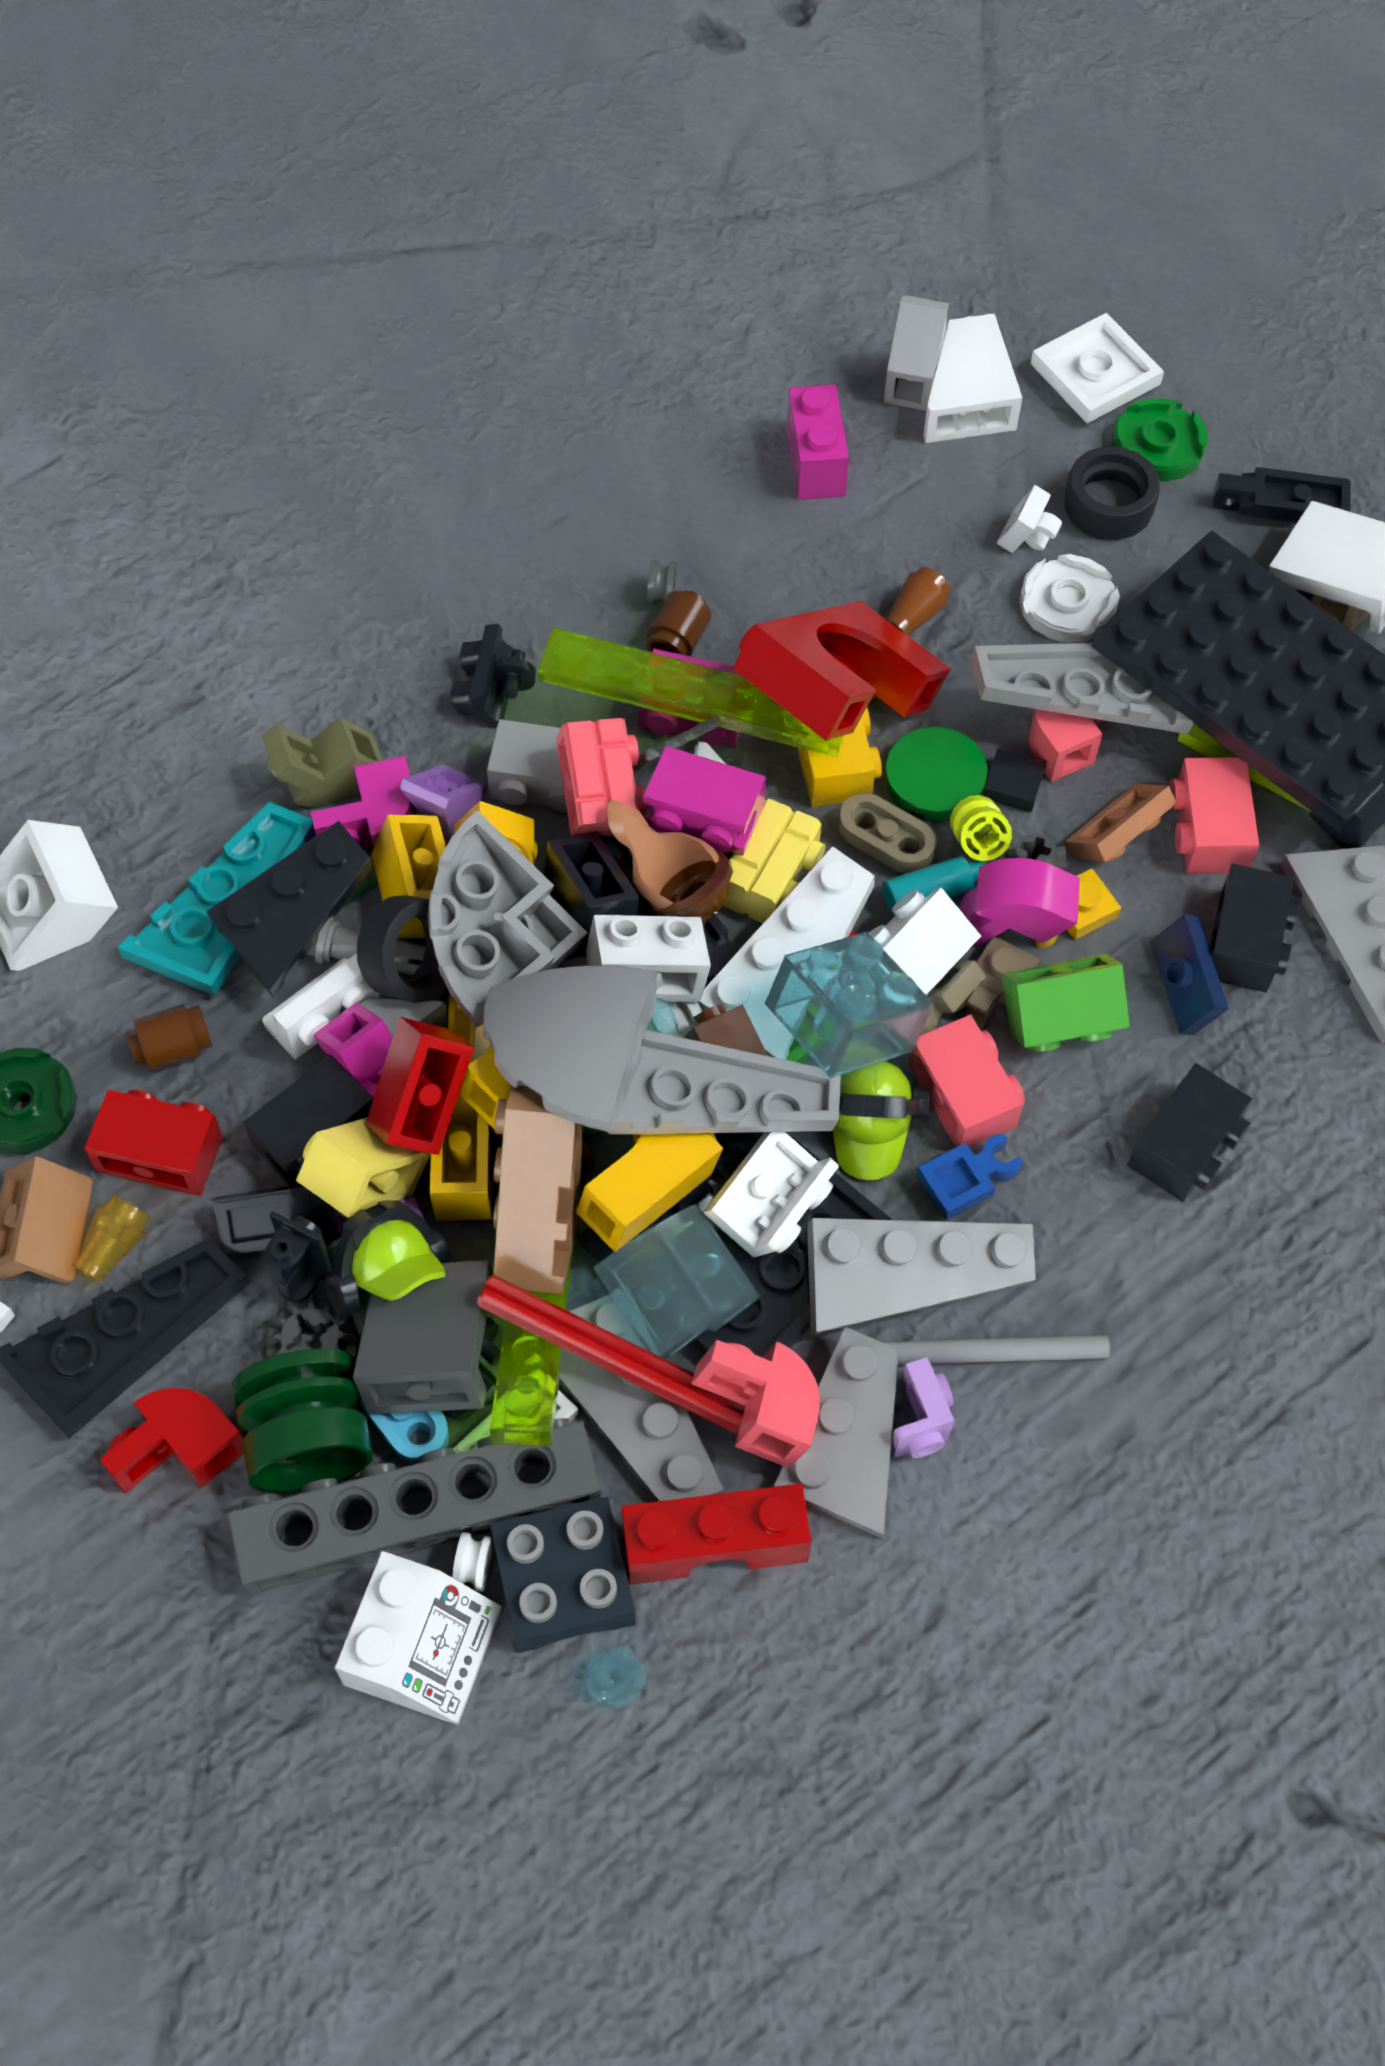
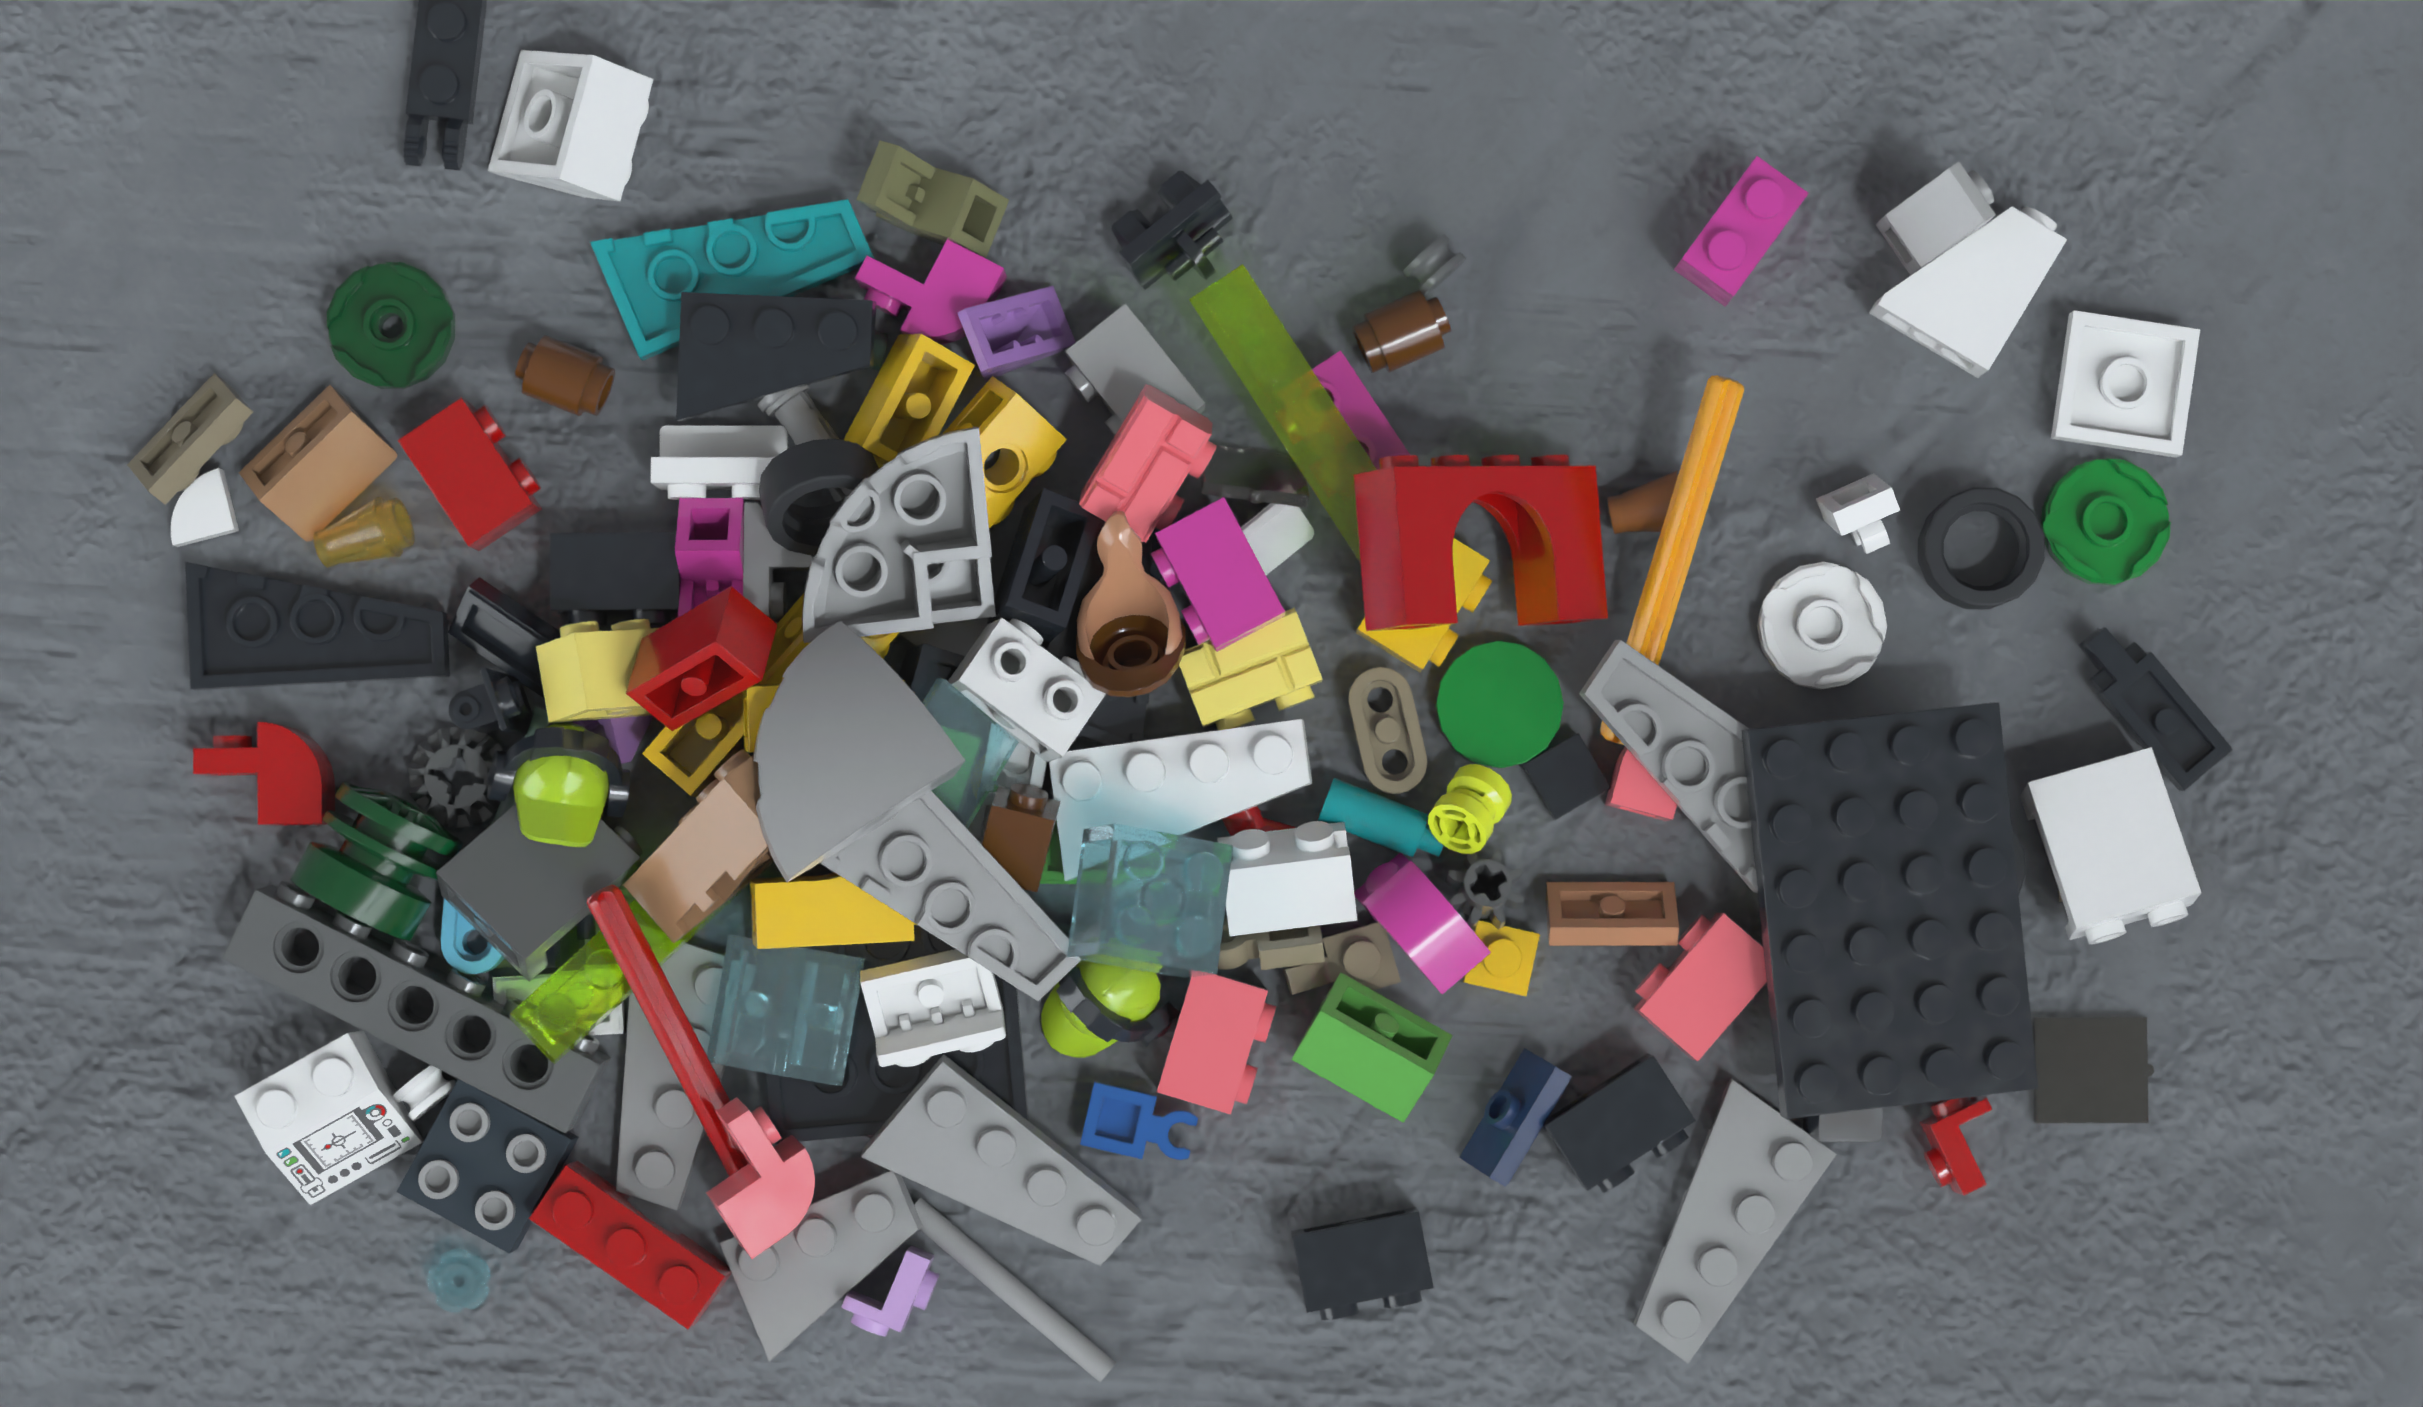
camera: 50 degrees right, 25 degrees up
(947, 596) = (1683, 521): none -> light orange axle

